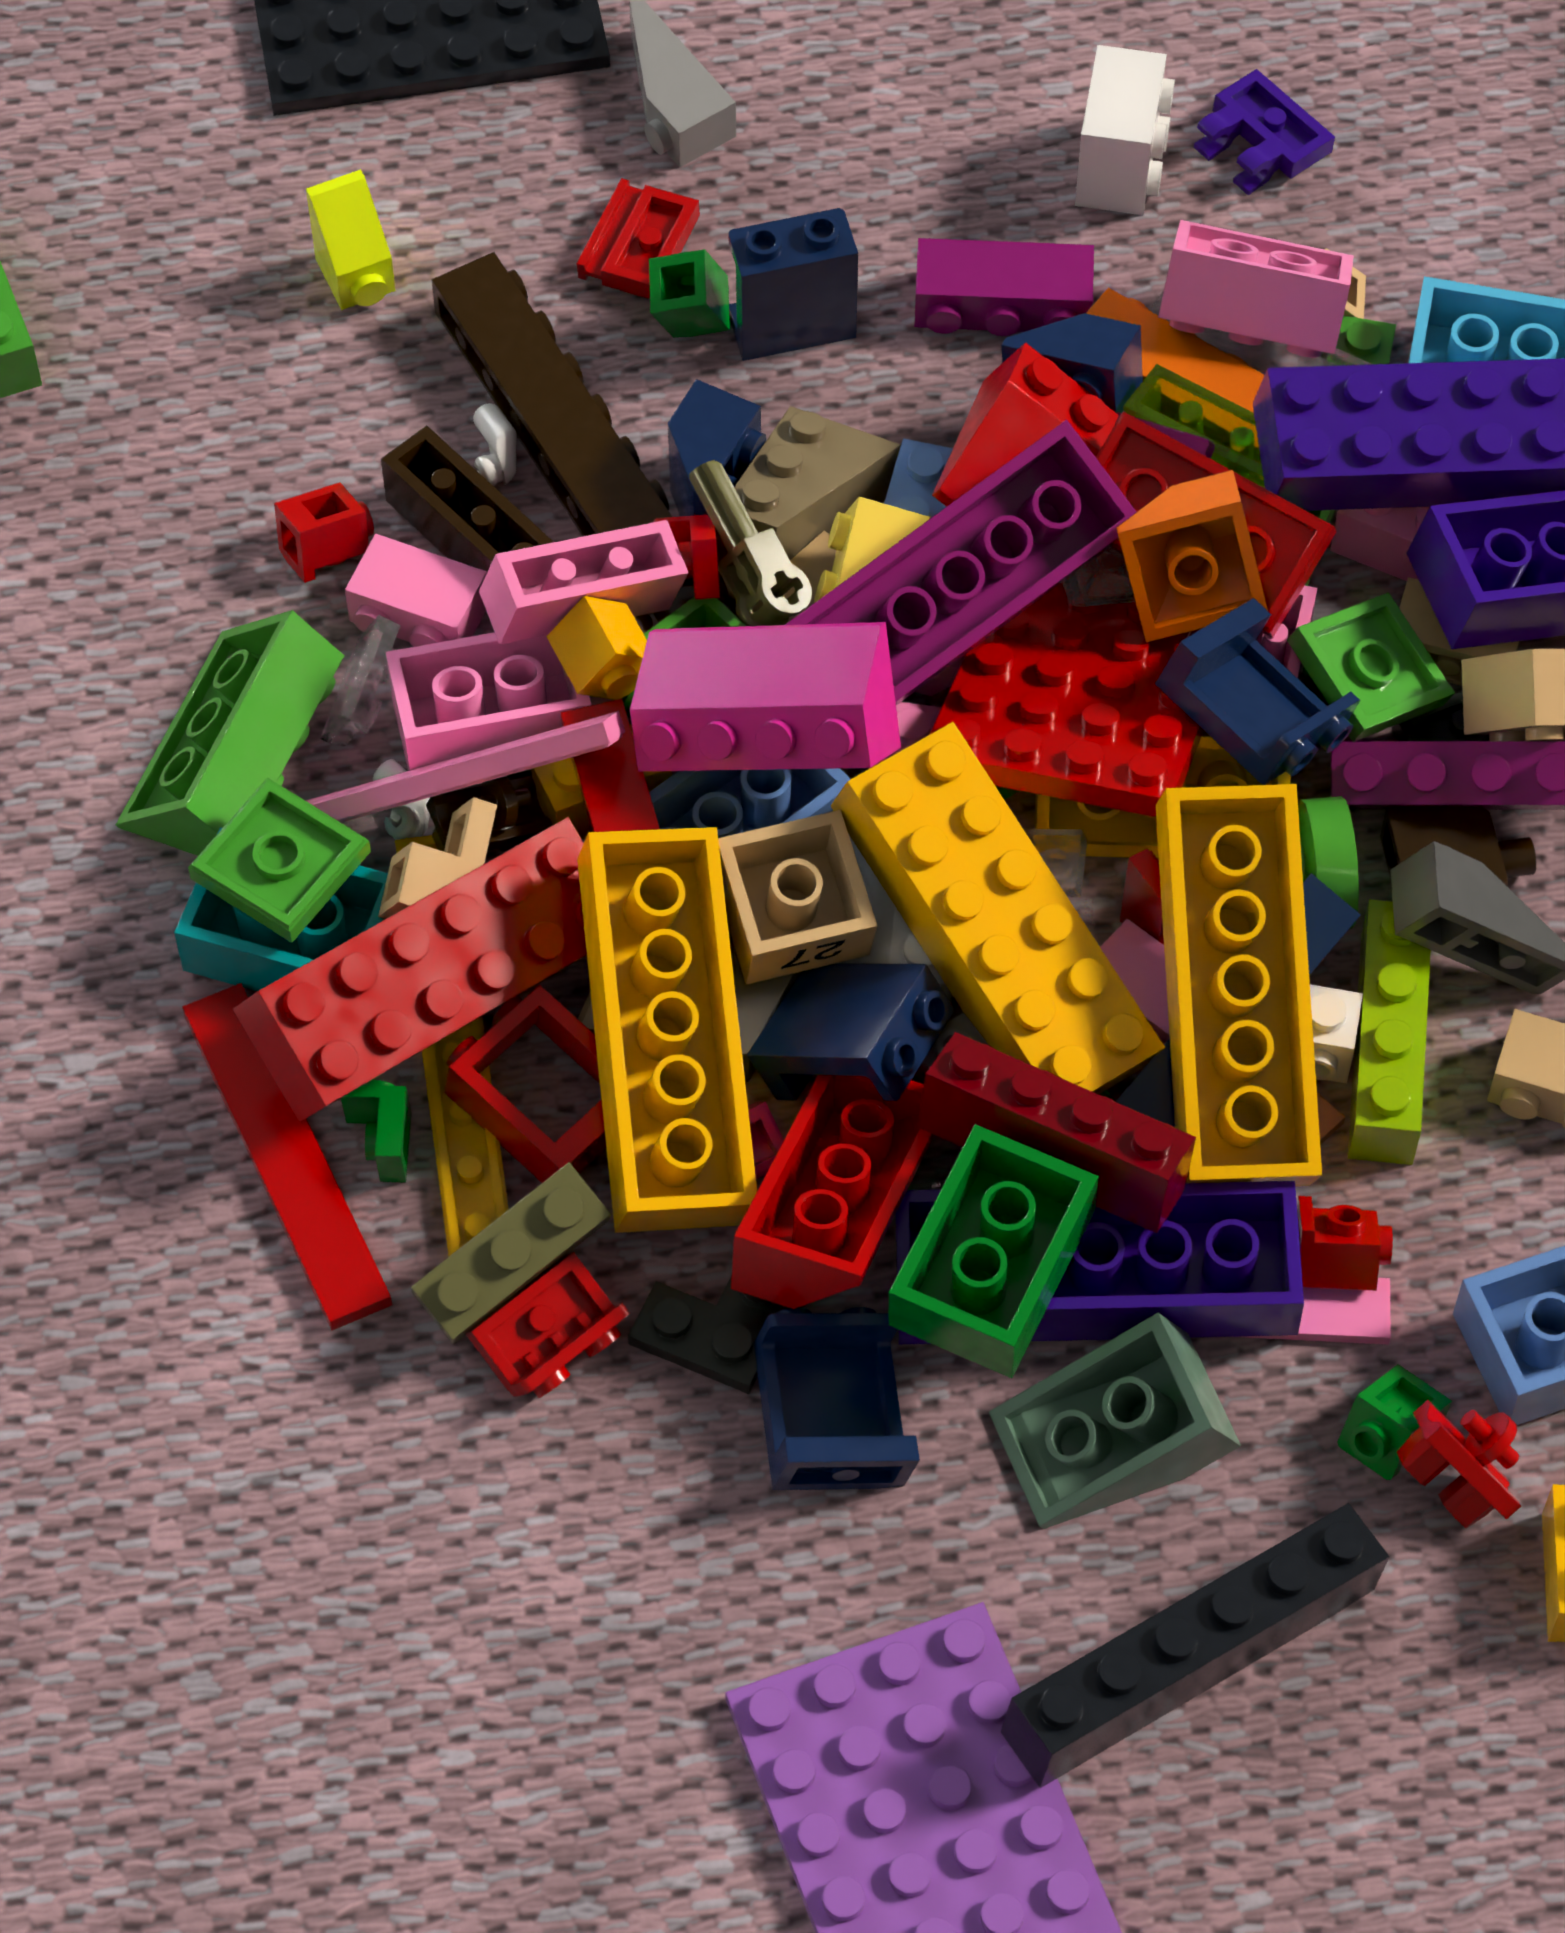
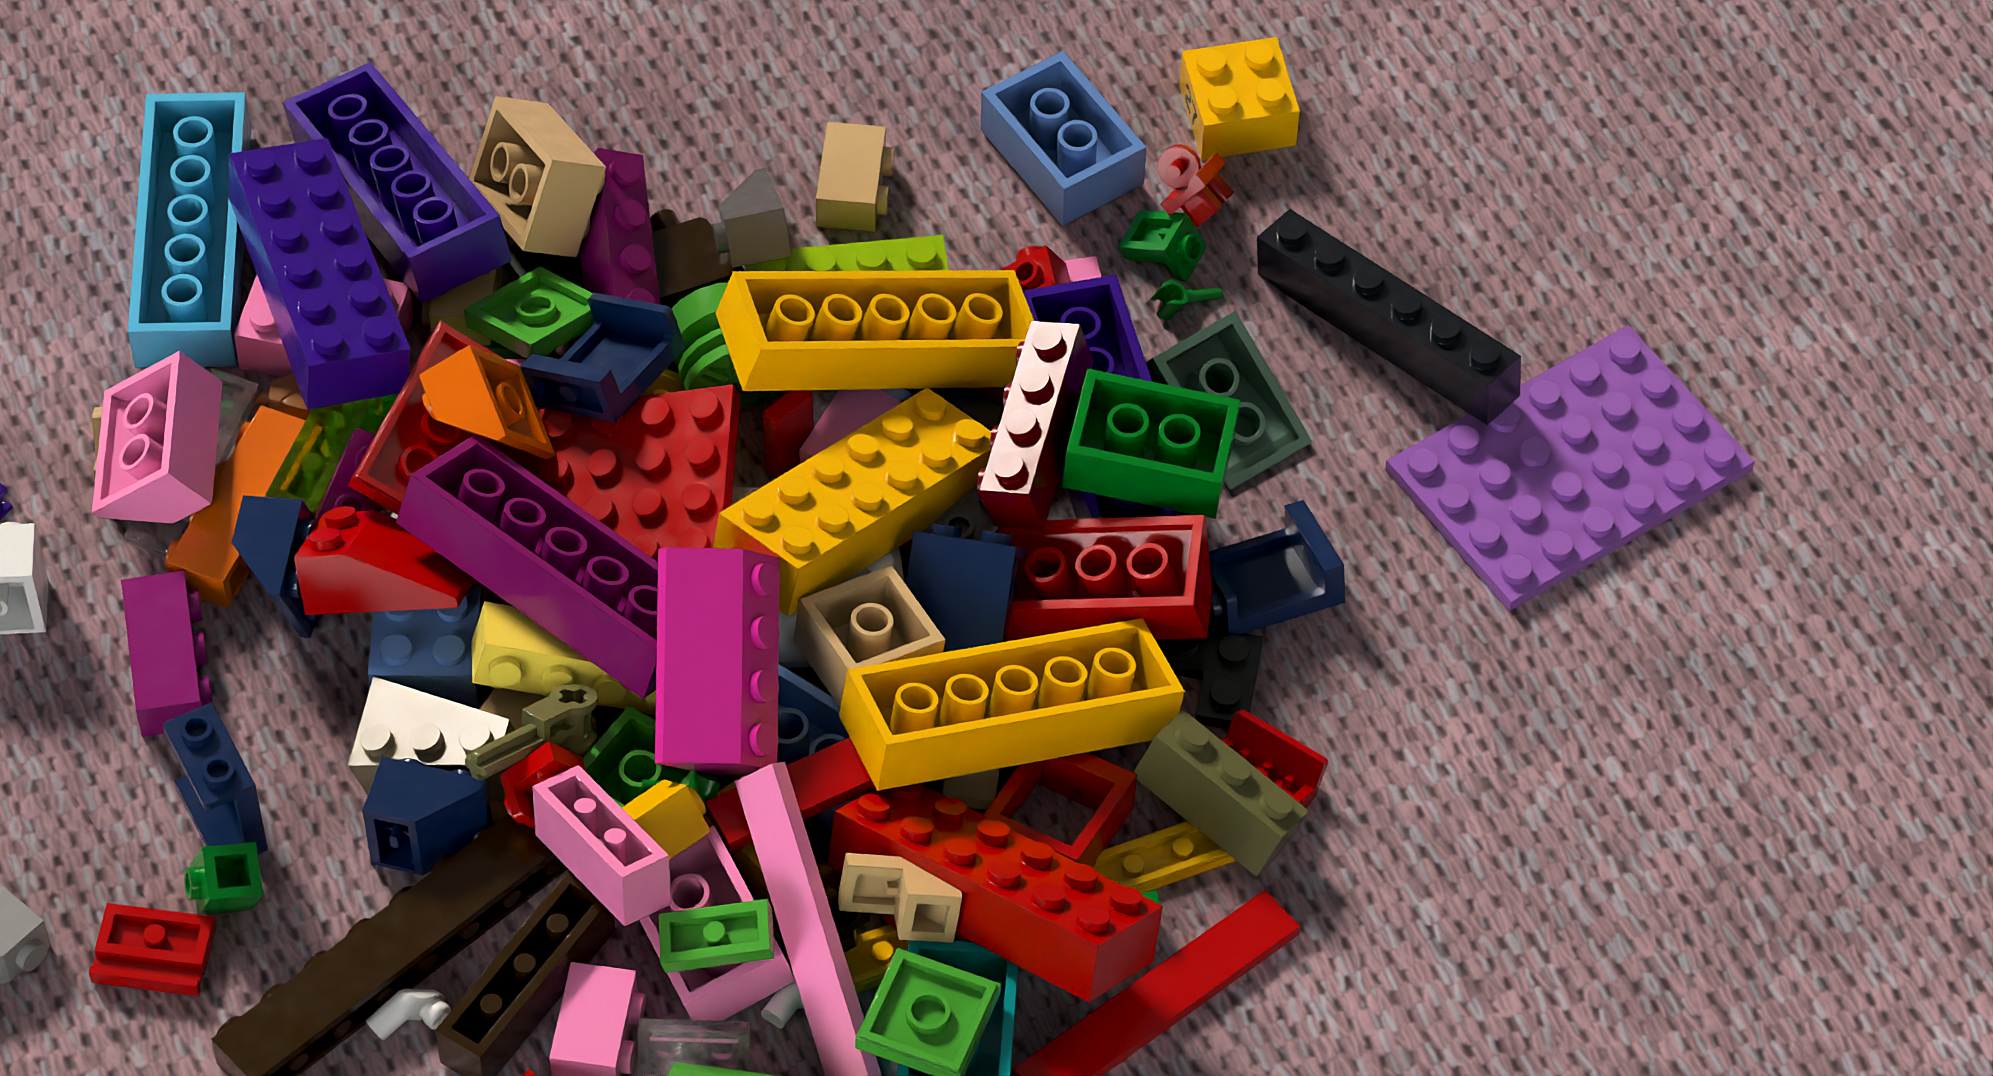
camera: 105 degrees left, 5 degrees down
(439, 673) = (716, 936): none -> bright green plate
(1303, 1433) = (1176, 296): none -> green hand

